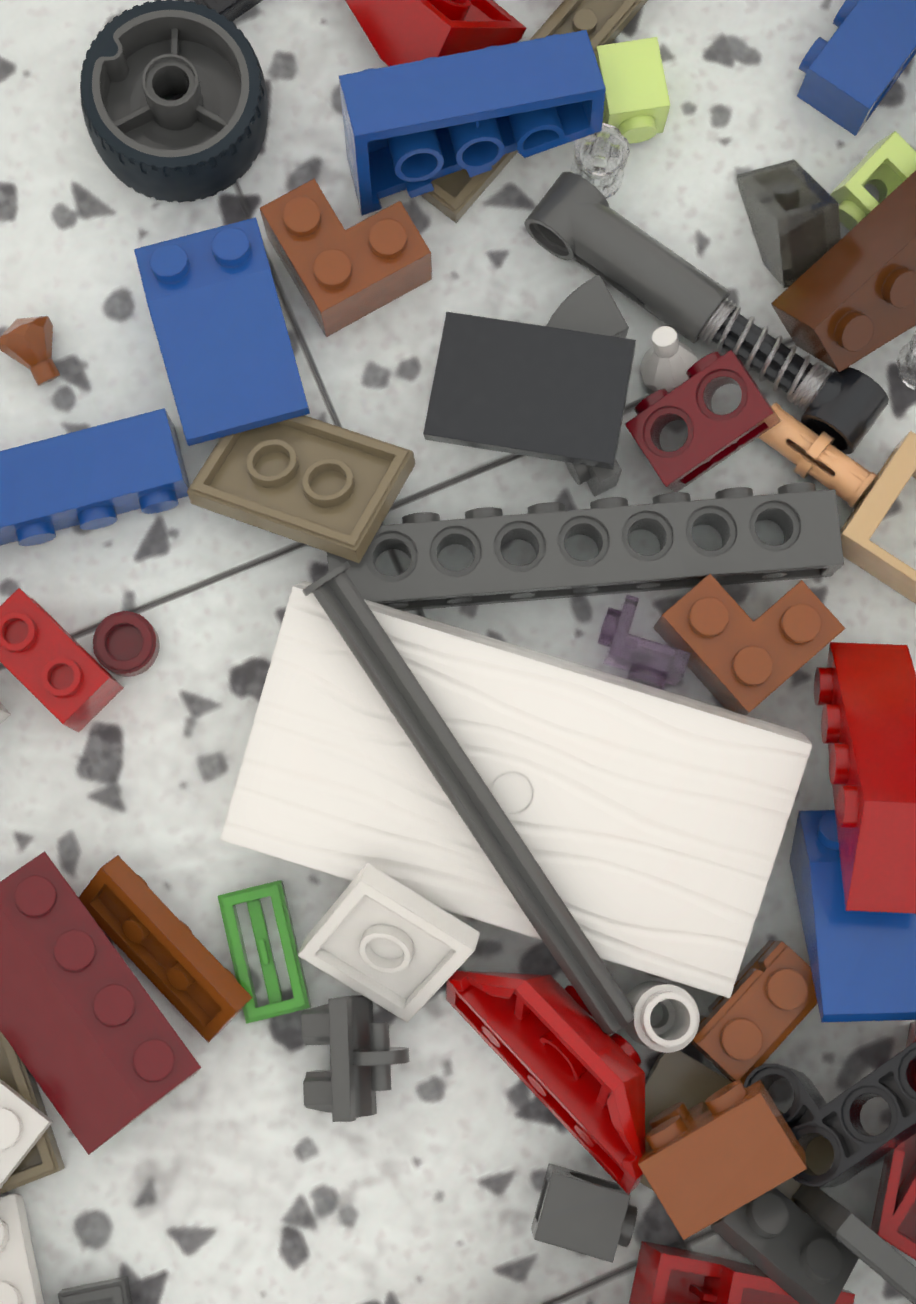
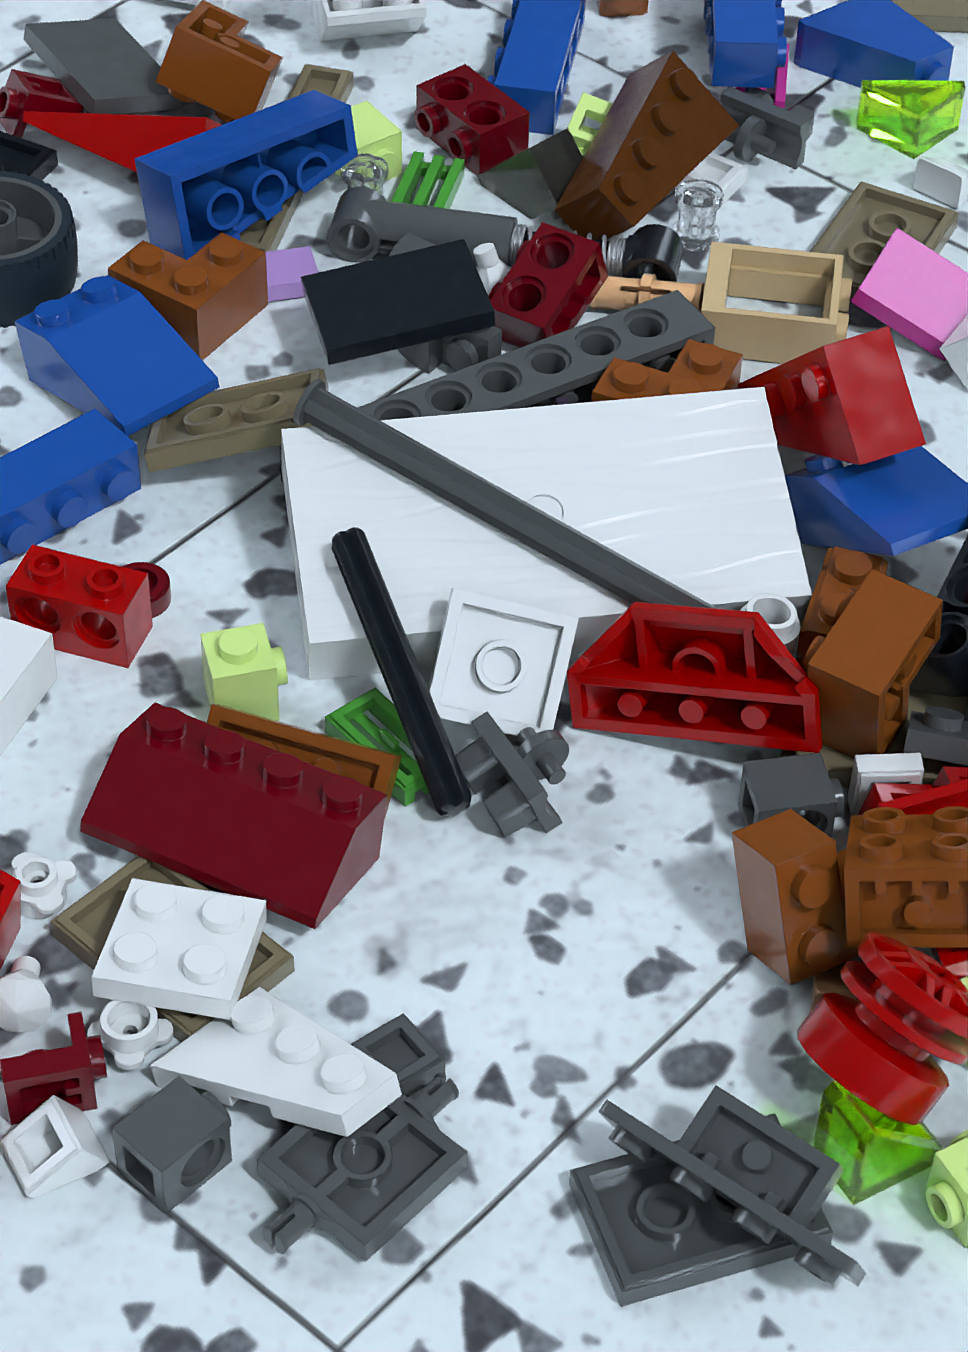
camera: 25 degrees left, 35 degrees down
(156, 823) = (243, 670): none -> yellowish green brick
(286, 912) = (401, 672): none -> black axle
(467, 250) = (285, 272): none -> lavender tile
(697, 147) = (432, 172): none -> bright green tile
(702, 1245) = (881, 768): none -> white tile
(779, 96) = (471, 119): none -> dark red brick

